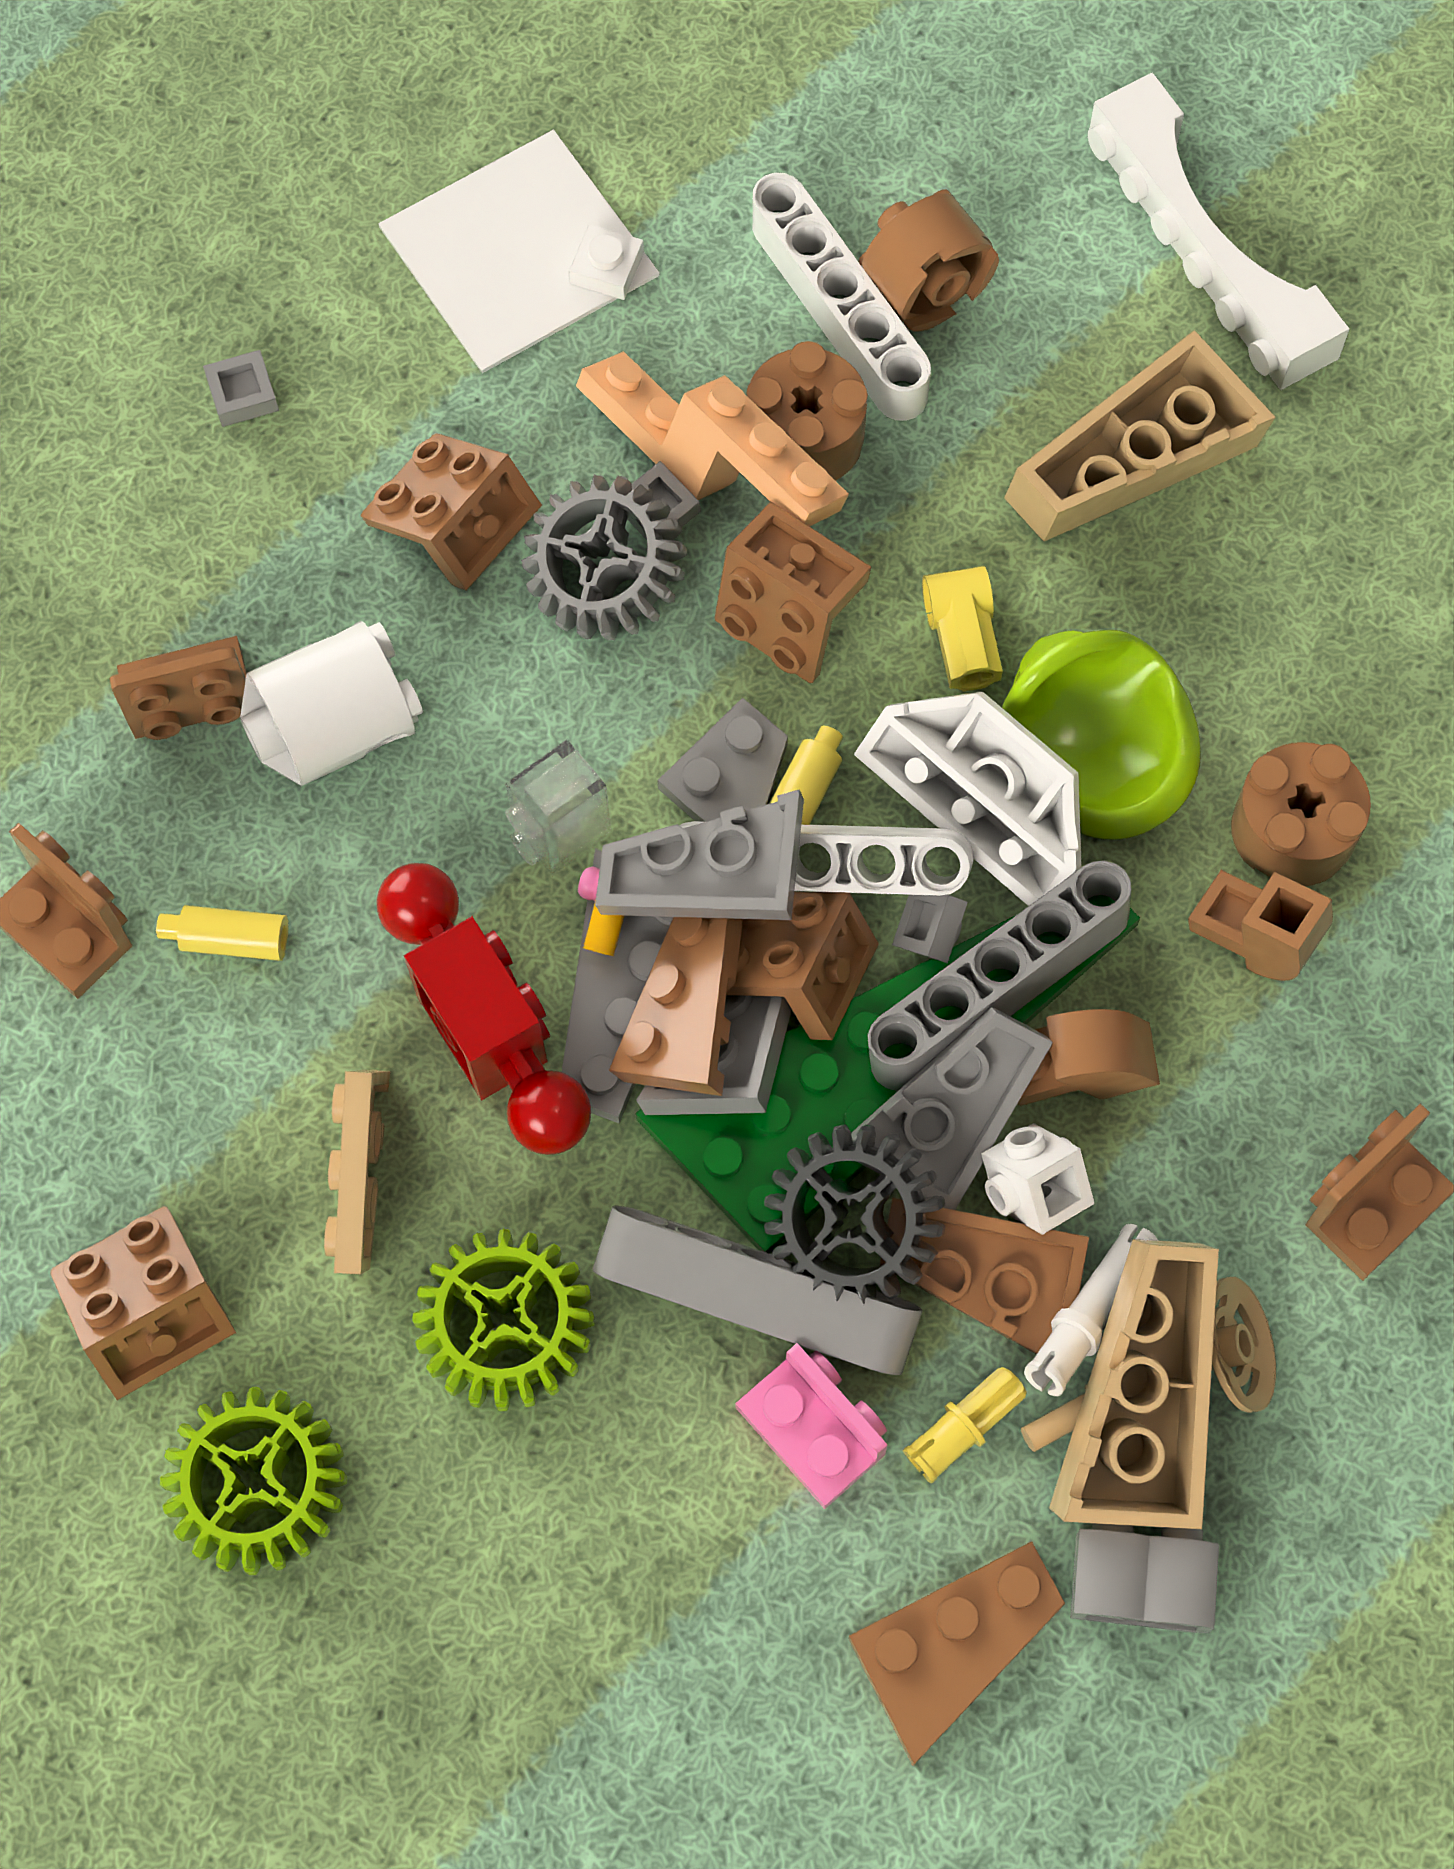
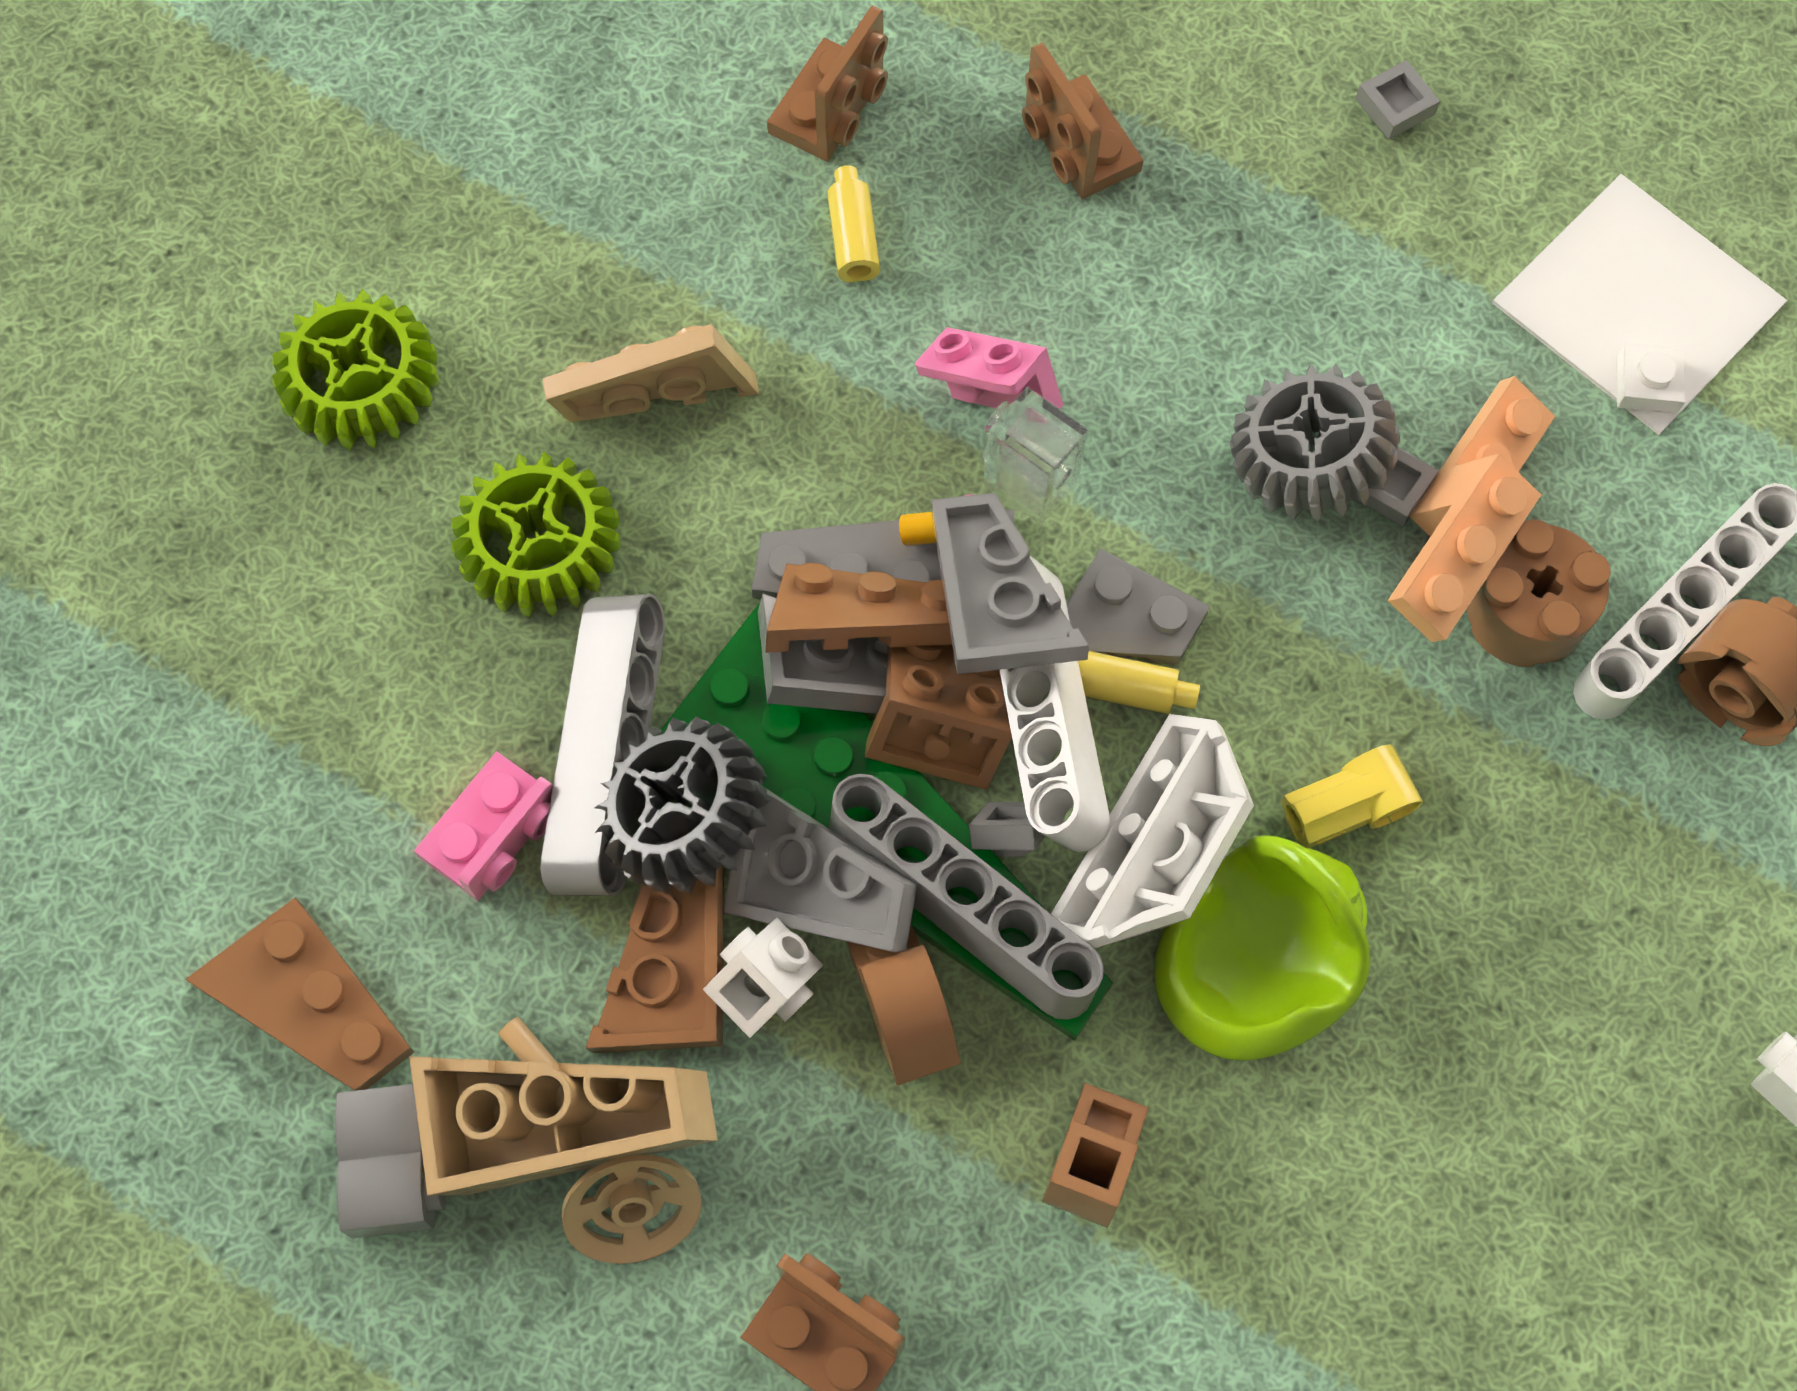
camera: 75 degrees right, 0 degrees up
(140, 1303) = (491, 239): medium nougat bracket -> none
(327, 704) = (1087, 241): white cylinder -> none
(456, 504) = (1331, 305): medium nougat bracket -> none
(457, 819) = (989, 368): none -> bright pink bracket
(480, 1010) = (814, 438): red brick -> none
(785, 589) = (1329, 605): medium nougat bracket -> none
(965, 1423) = (514, 963): light yellow axle -> none
(1080, 1327) = (617, 1044): white pin -> none
(1144, 437) = (1628, 935): tan wedge -> none
(1282, 791) = (1247, 1141): medium nougat brick -> none

